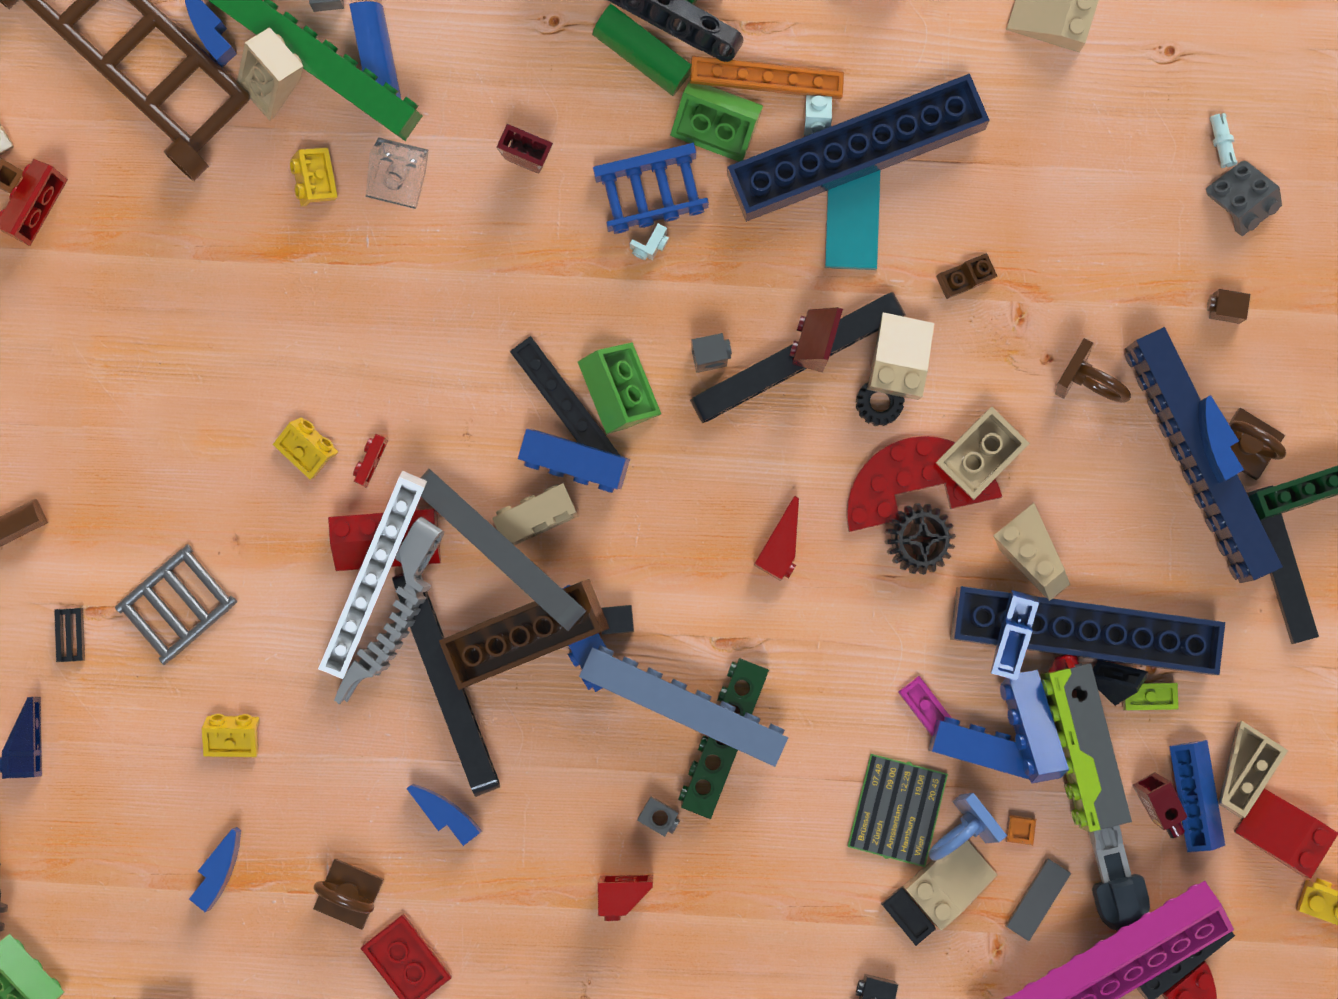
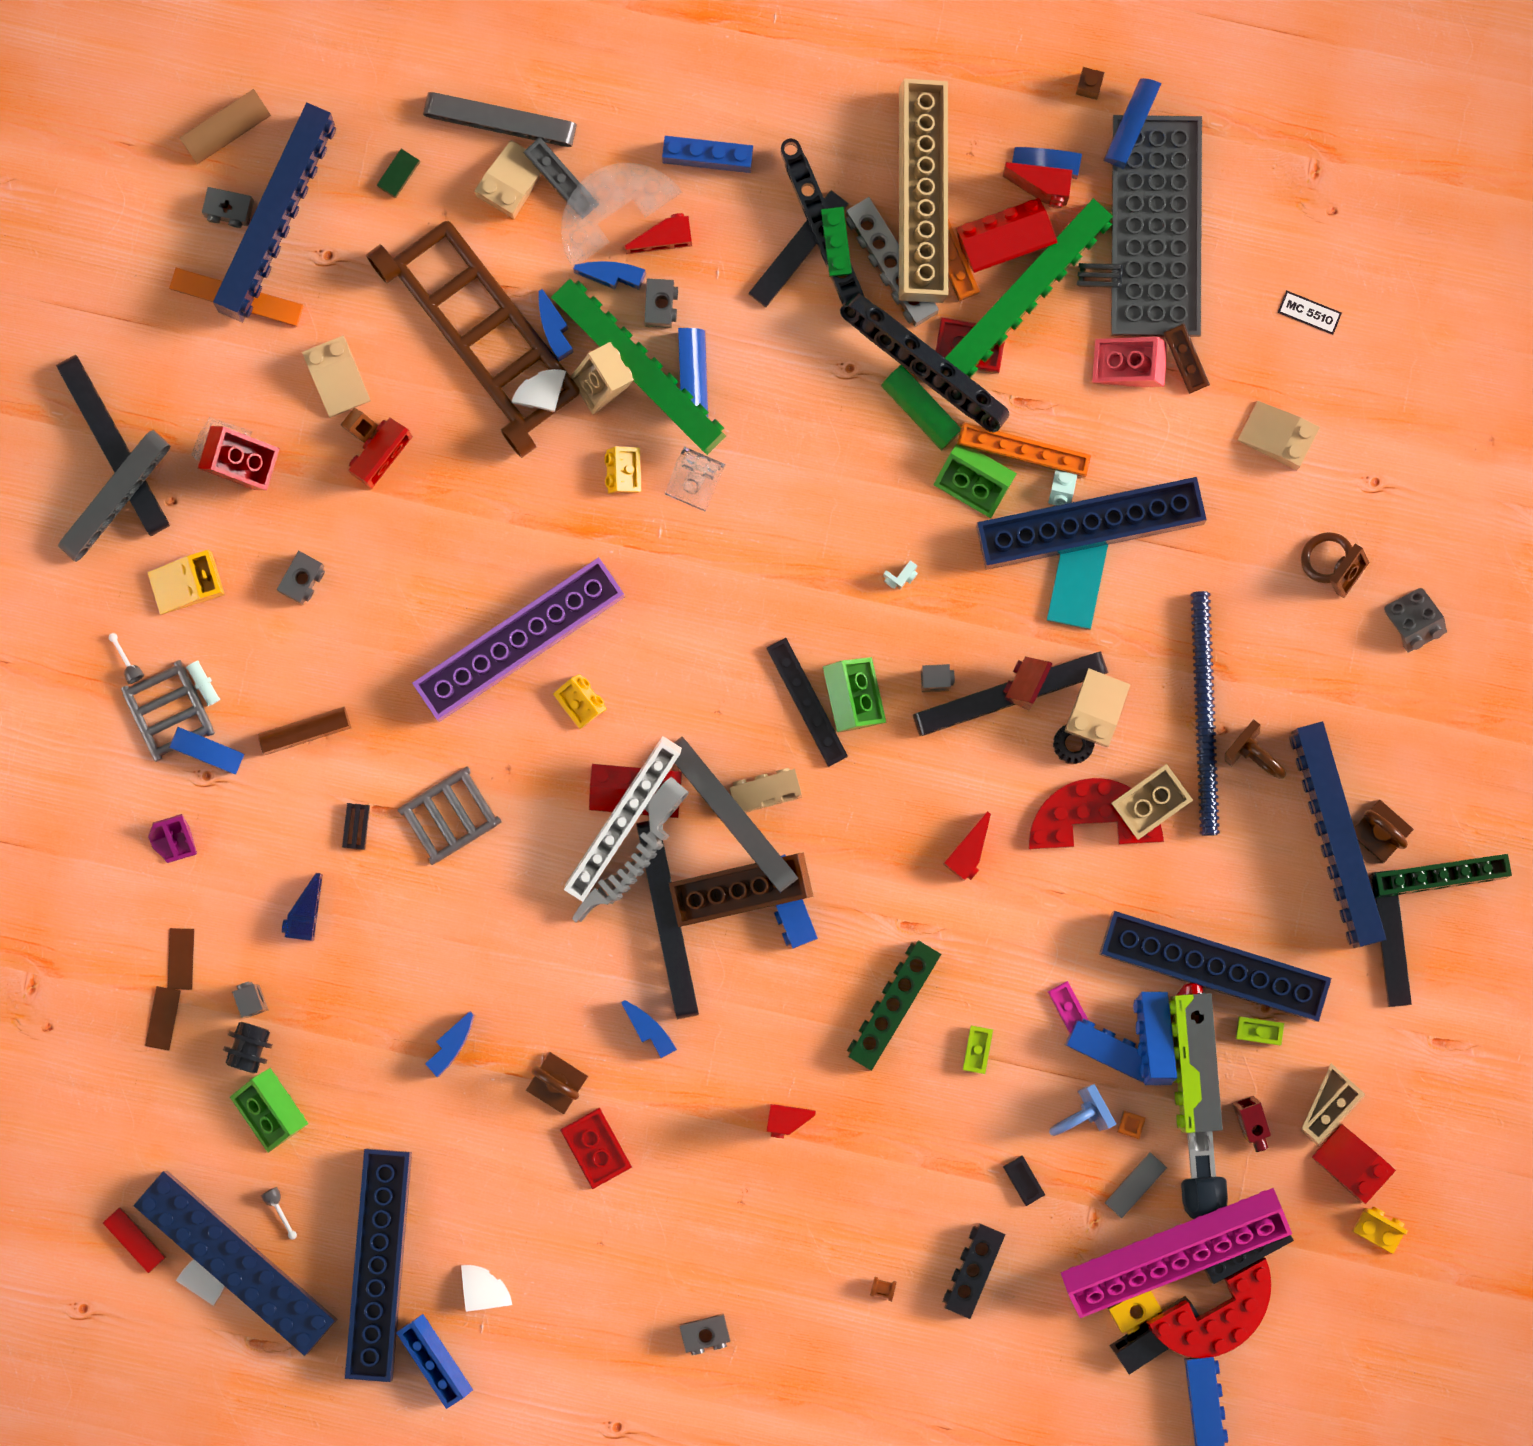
camera: 10 degrees right, 0 degrees up
(203, 100) = (541, 390): none -> white brick
(221, 389) = (518, 639): none -> medium lavender brick
(230, 736) = (479, 934): yellow bracket -> none
(374, 449) = (627, 728): red plate -> none
(525, 148) = (808, 479): dark red torso -> none
(574, 459) = (806, 749): blue brick -> none
(618, 619) = (822, 891): black brick -> none
(652, 806) = (817, 1060): dark grey brick -> none
(657, 163) = (896, 509): blue fence -> none
(683, 706) = (864, 972): sand blue brick -> none
(829, 773) = (977, 1049): none -> lime plate
(897, 810) = (1030, 1090): piece -> none
(920, 528) = (1087, 856): black gear -> none
(950, 884) = (1064, 1158): tan slope -> none
(966, 276) = (1166, 648): reddish brown slope -> none
(1014, 634) = (1152, 958): slope -> none
(1024, 342) = (1205, 713): none -> dark blue piece
(1032, 552) = (1180, 892): tan wedge -> none
(1118, 681) = (1233, 1012): black slope -> none
(1157, 152) = (1347, 568): none -> reddish brown tile
(1197, 795) = (1285, 1121): blue brick -> none
(1217, 439) = (1349, 823): blue slope -> none
(1223, 140) = (1406, 568): light aqua pin -> none
(1228, 306) = (1384, 711): reddish brown brick -> none

